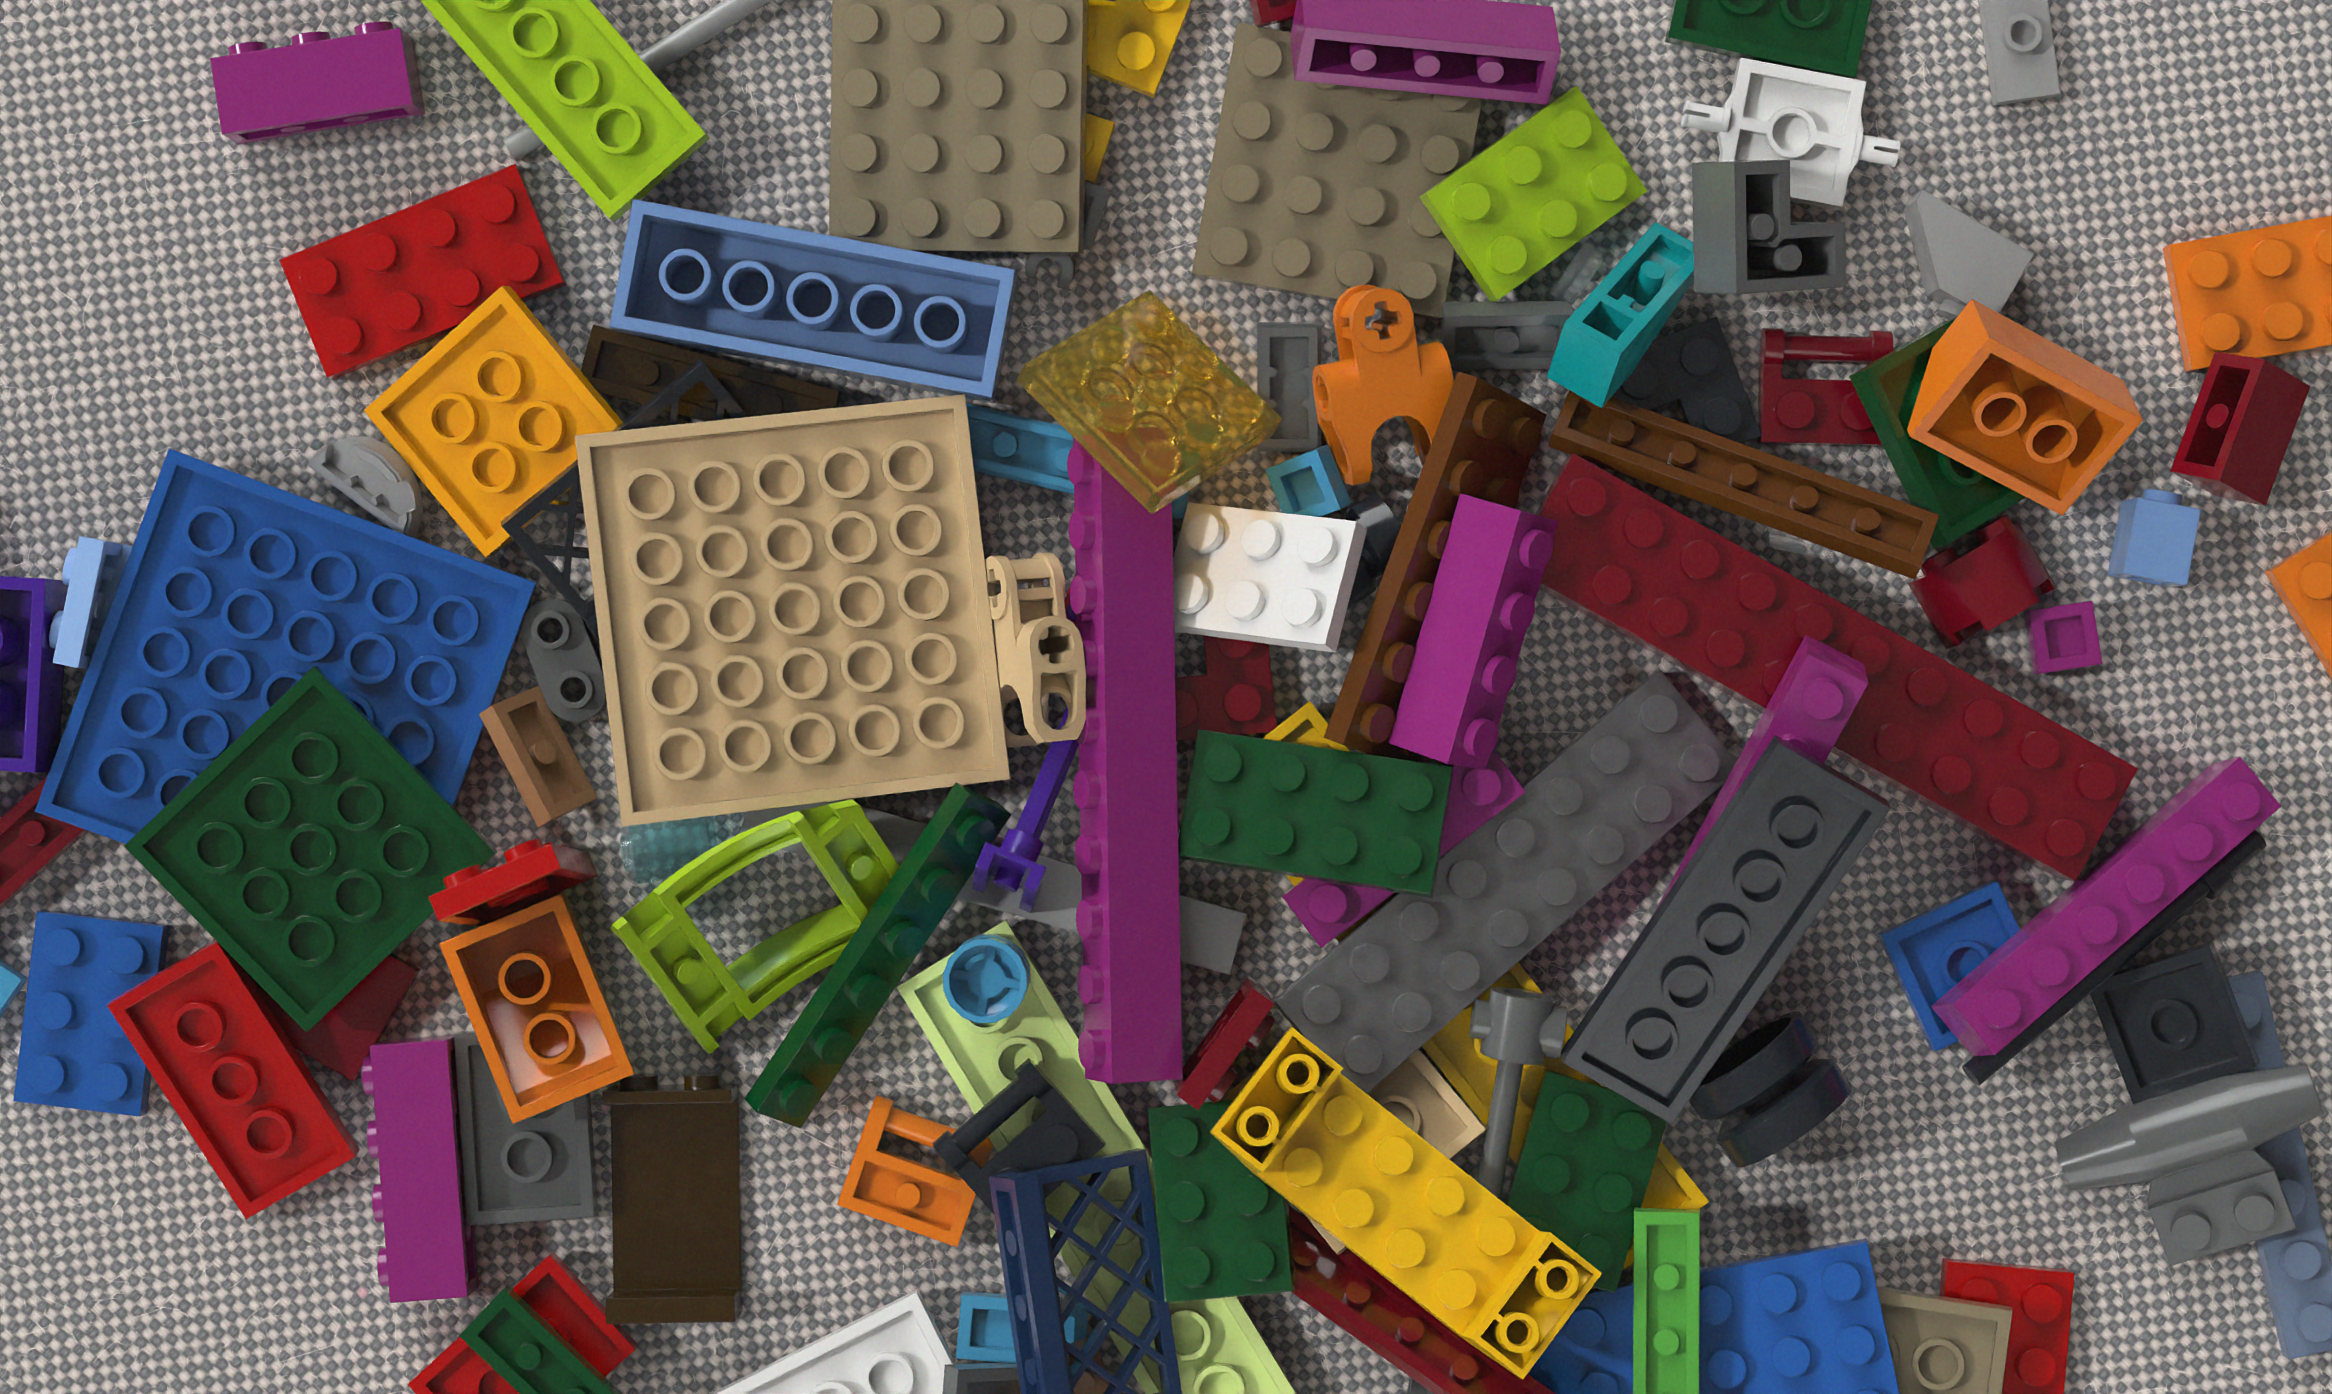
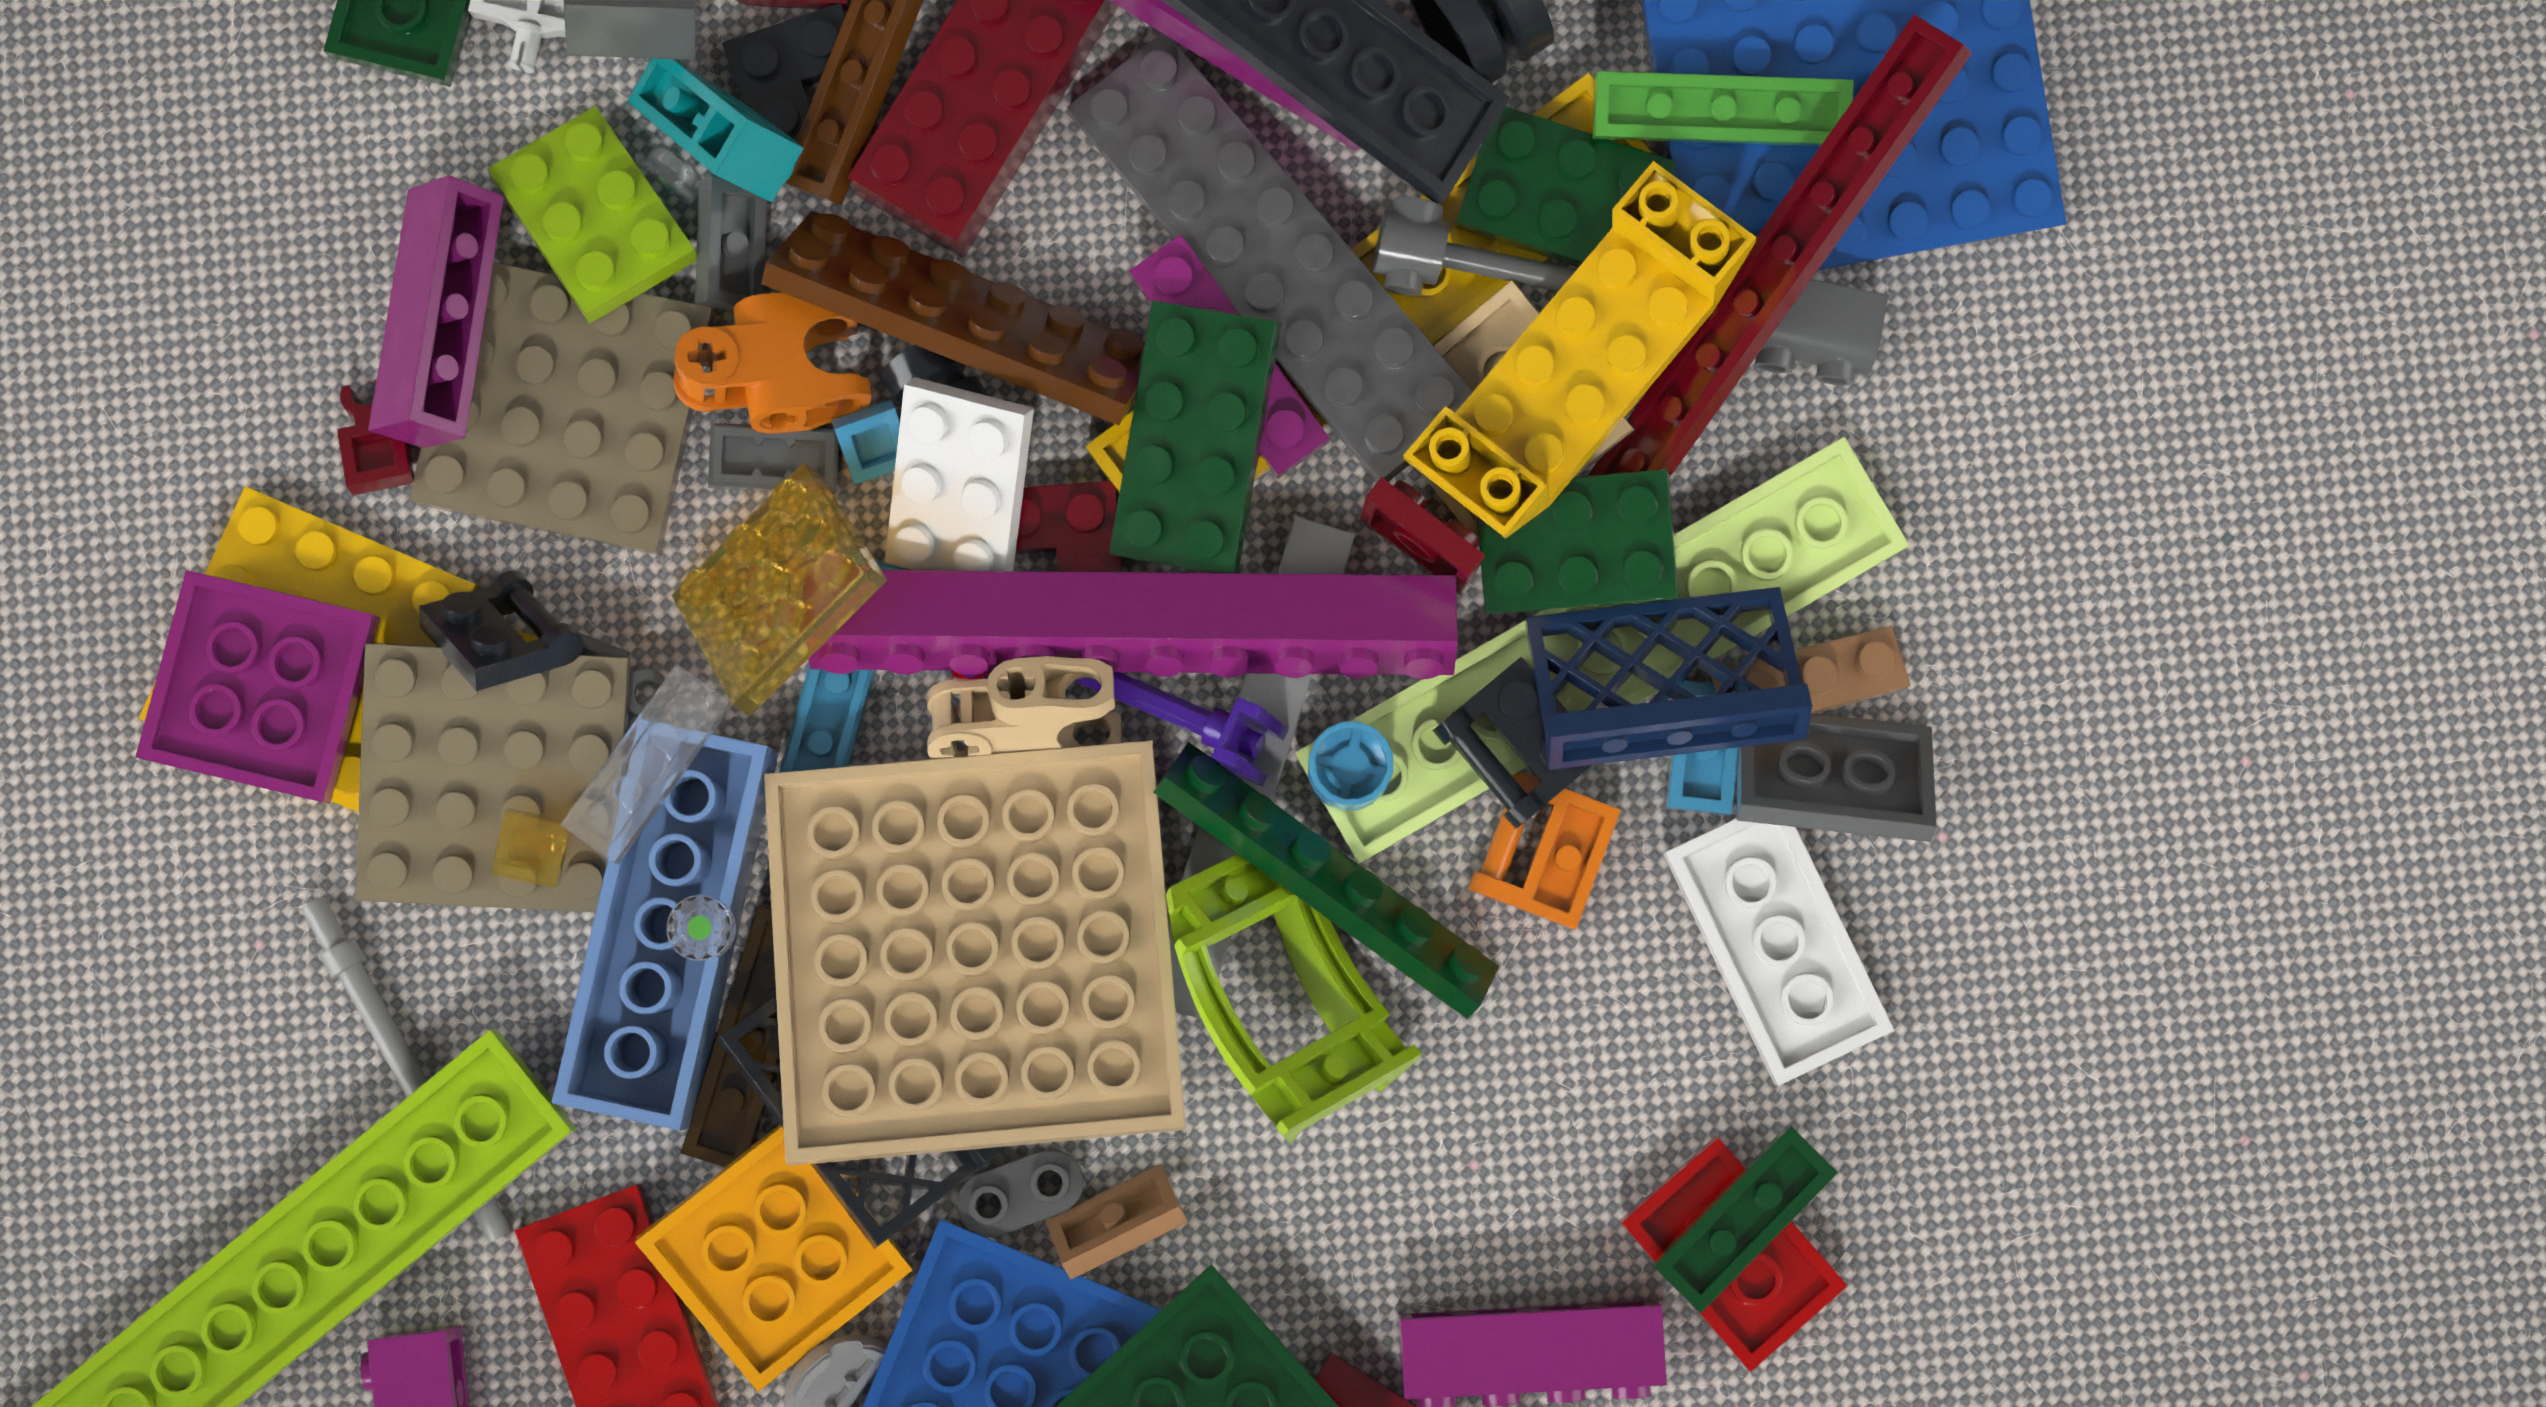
camera: 90 degrees left, 5 degrees down
(523, 1168) = (1489, 1244): dark grey plate -> none
(529, 876) = (1233, 1221): red plate -> none
(537, 1007) = (1369, 1223): orange slope -> none
(665, 847) = (1210, 1092): clear light blue brick -> none
(675, 1200) = (1569, 1095): dark brown panel -> none
(806, 340) = (701, 928): none -> clear tile
(884, 166) = (530, 848): none -> clear yellow plate
(966, 280) = (646, 764): none -> clear plate
(1087, 110) = (484, 643): none -> black plate
(1473, 632) = (1018, 275): magenta brick -> none

